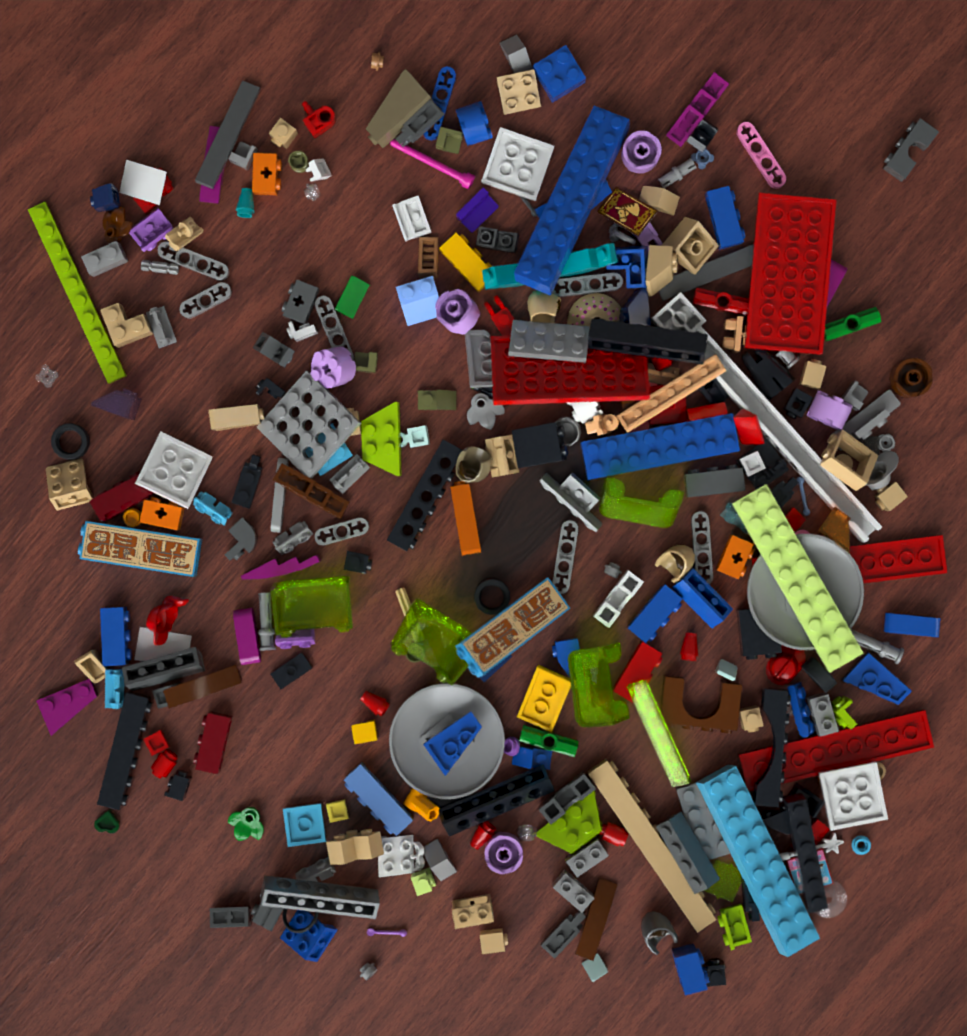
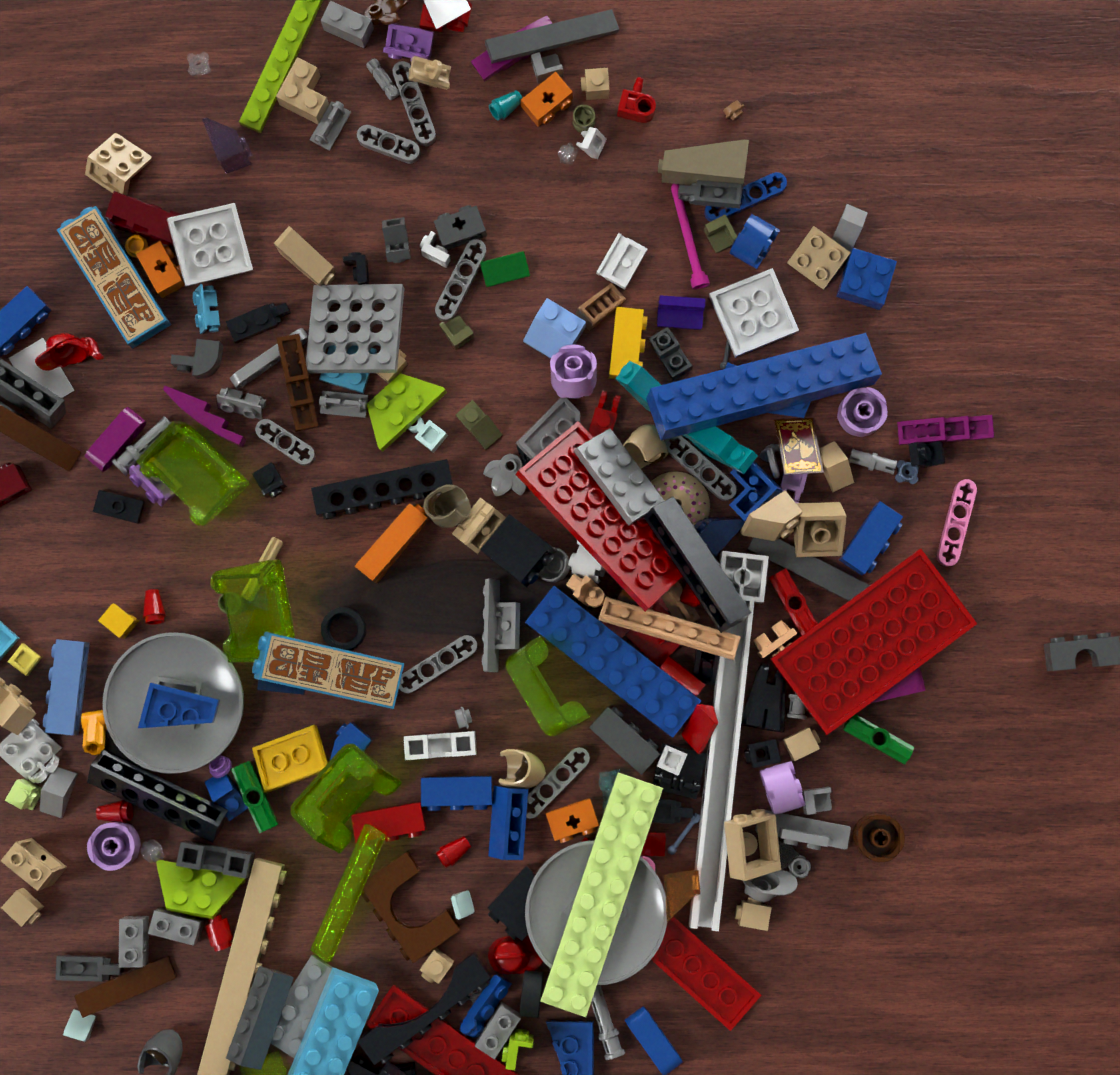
camera: 45 degrees right, 5 degrees down
(56, 444) = (153, 116): black tyre -> none
(333, 367) = (426, 304): lavender brick -> none

